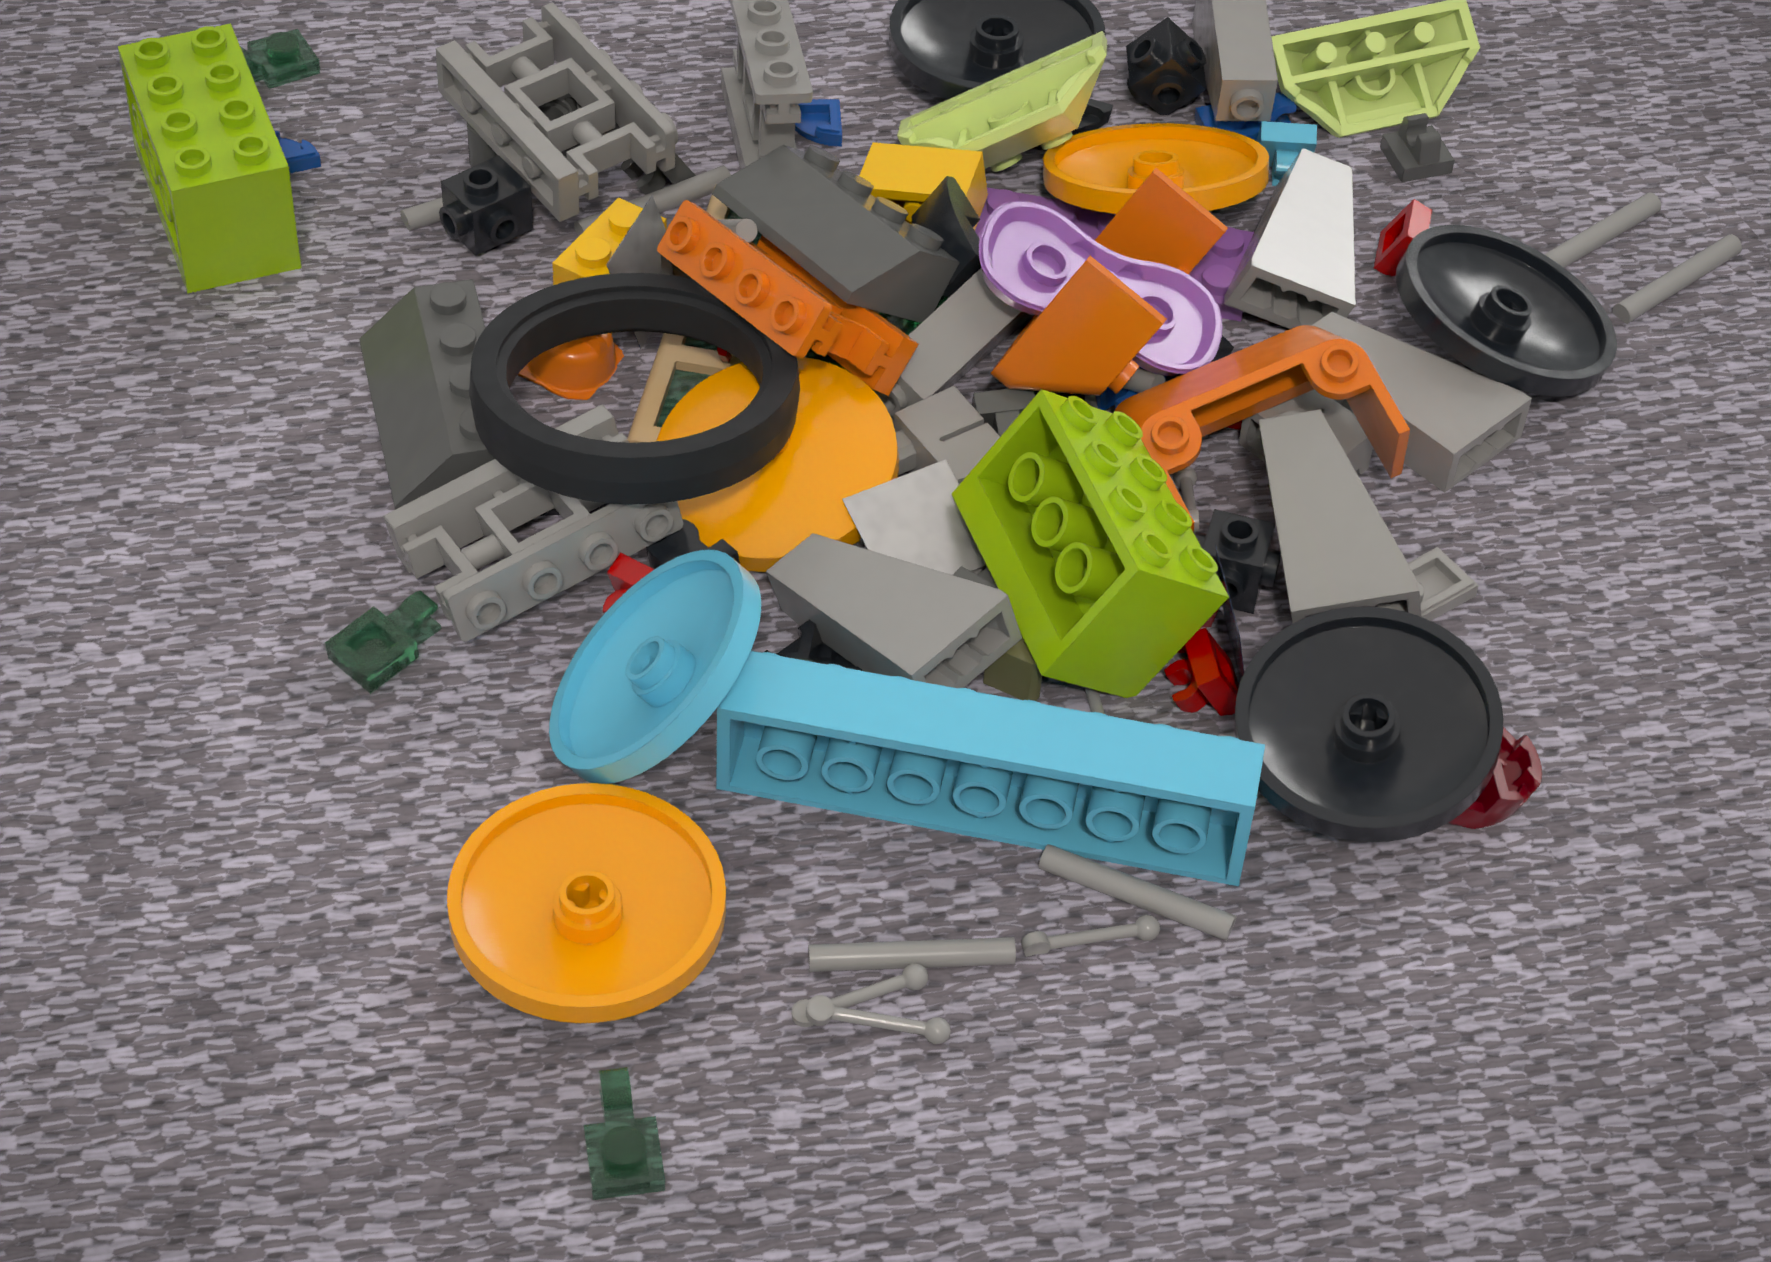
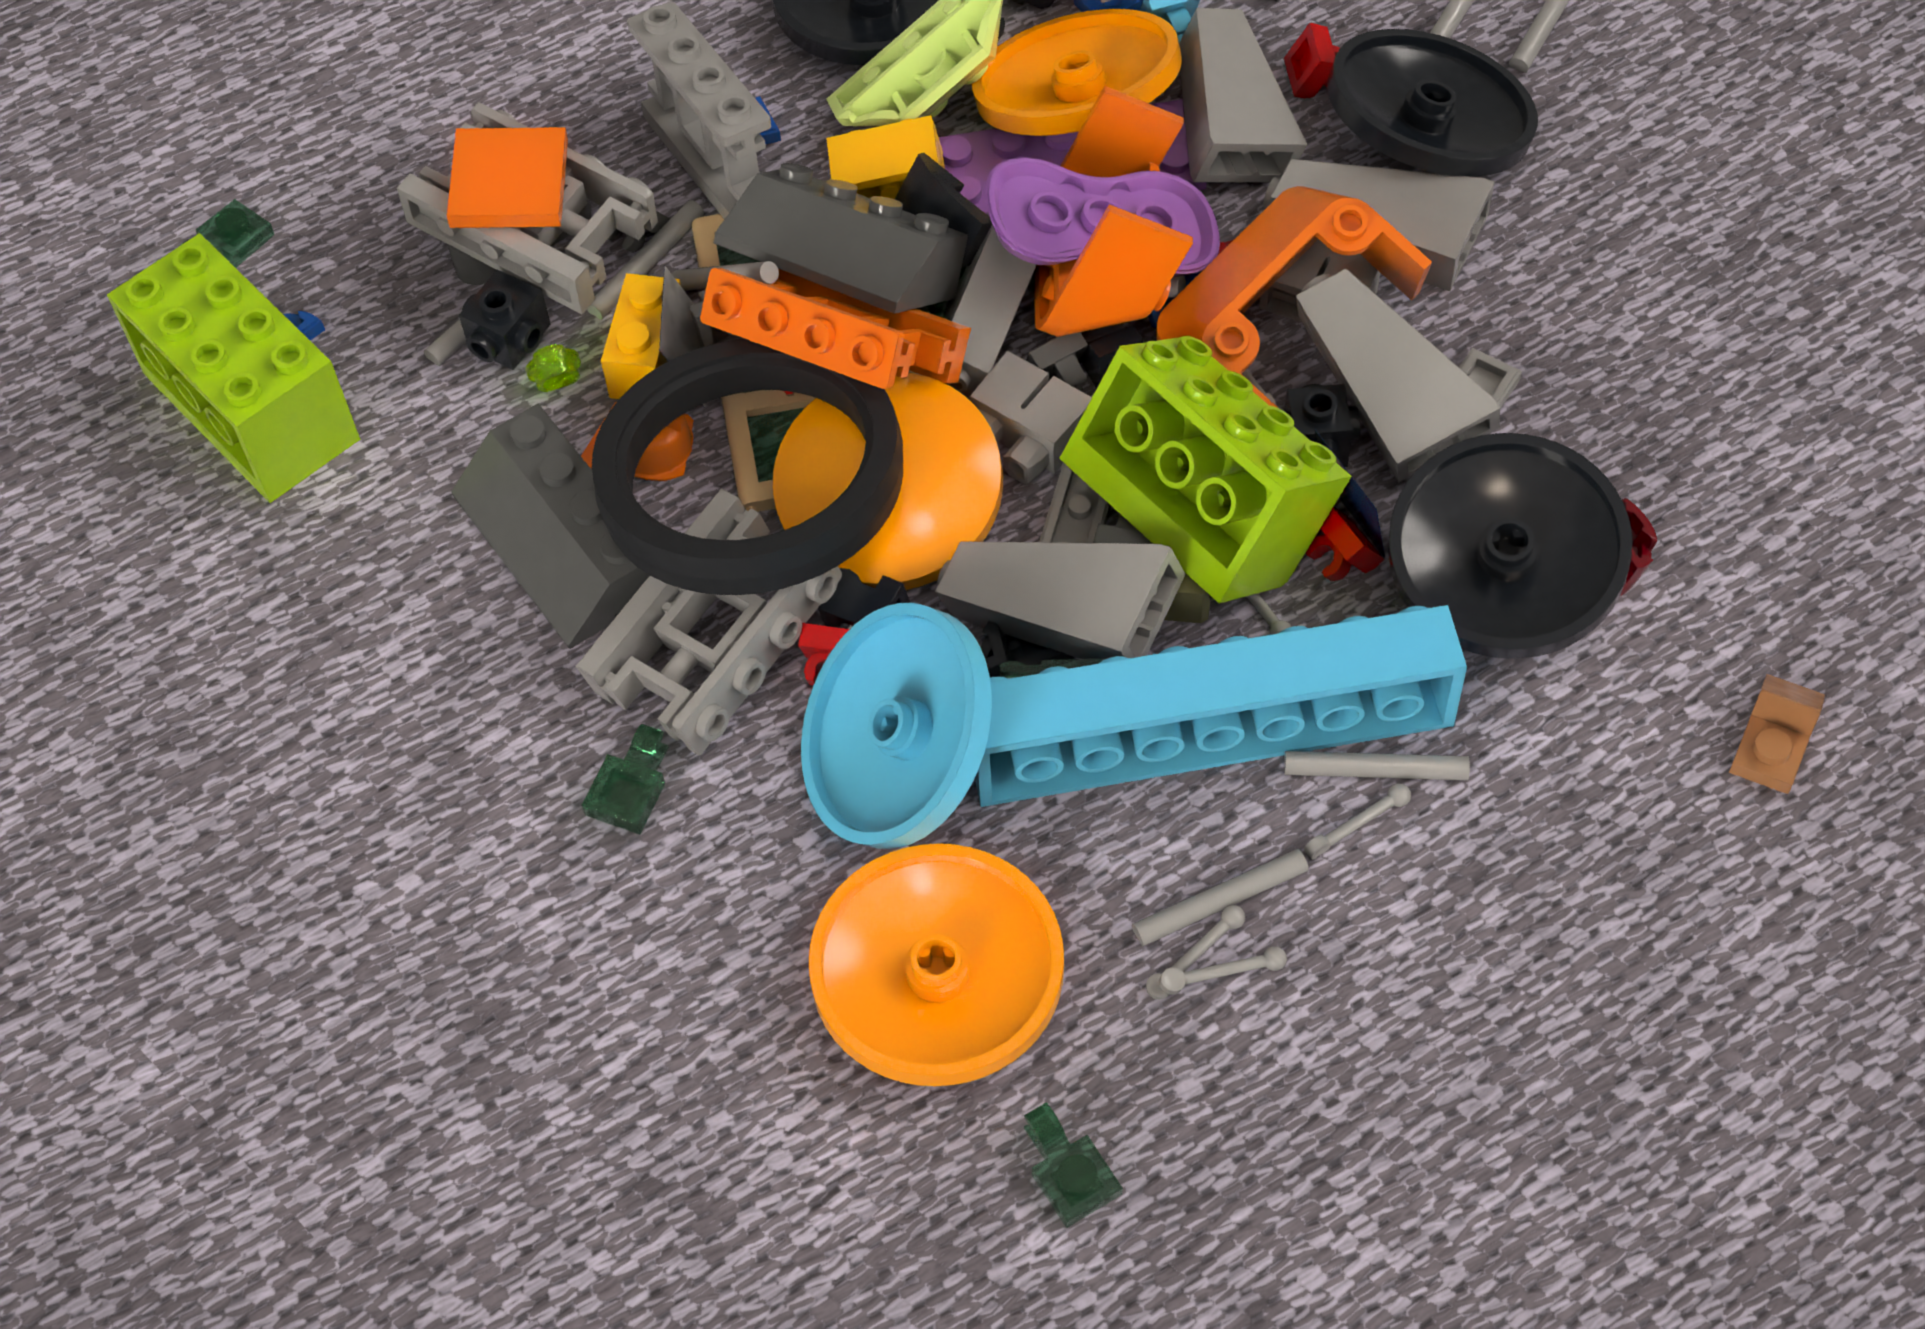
camera: 15 degrees left, 10 degrees up
(512, 263) = (553, 367): none -> clear neon green plate
(541, 70) = (507, 177): none -> orange tile
(916, 520) = (1040, 496): flat silver sticker -> none
(1578, 1010) = (1777, 733): none -> medium nougat slope

